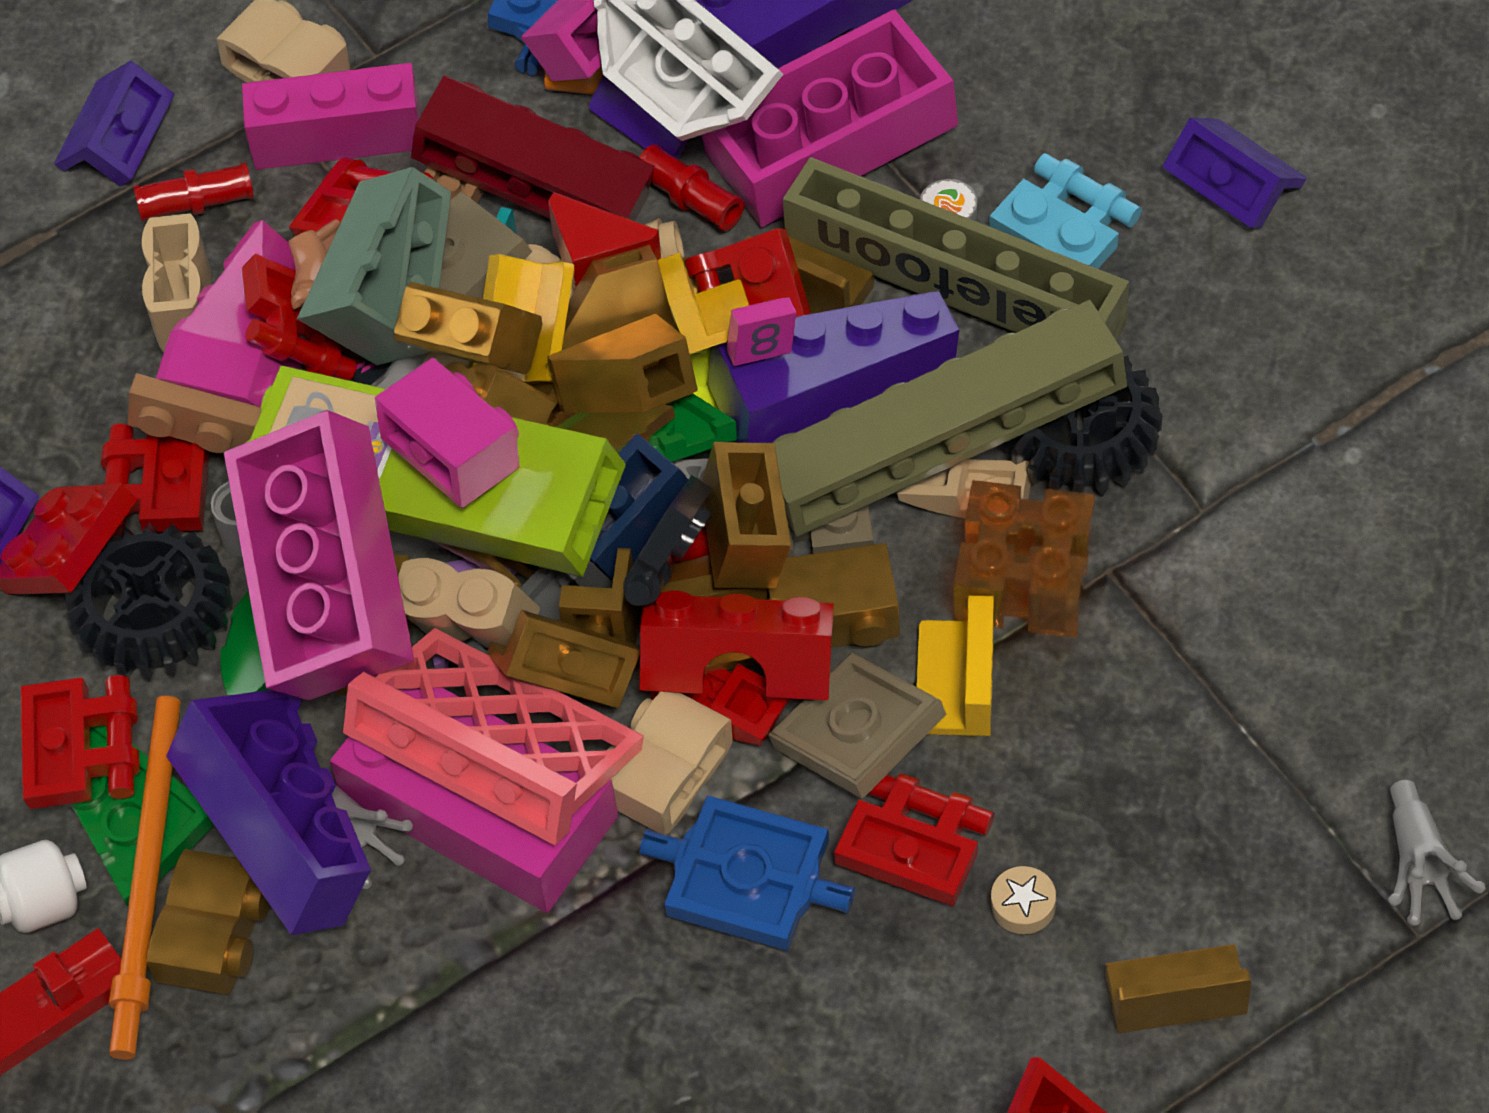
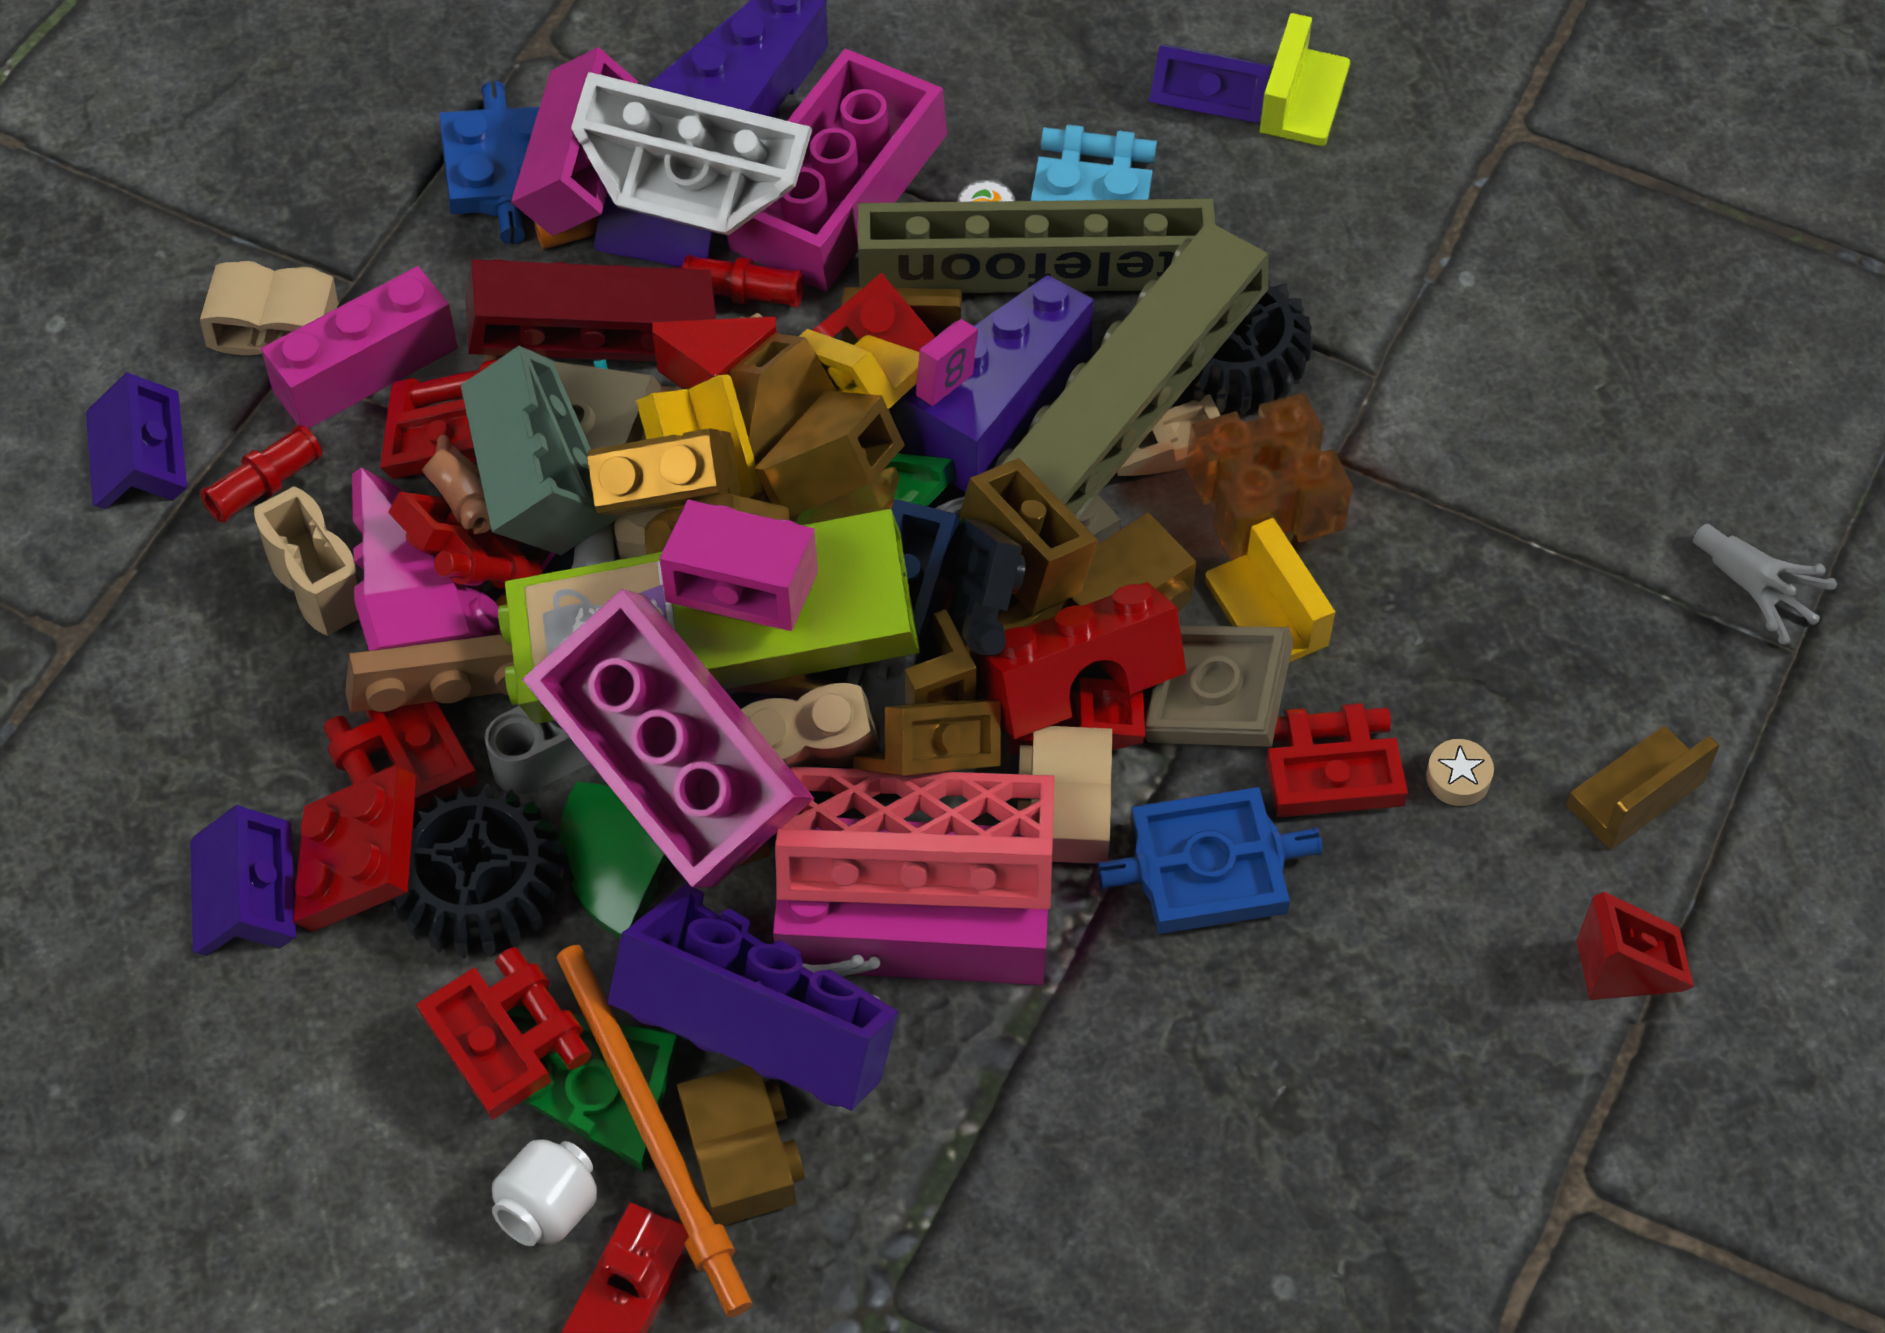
camera: 35 degrees left, 0 degrees up
(1314, 208) = (1302, 87): none -> neon yellow panel

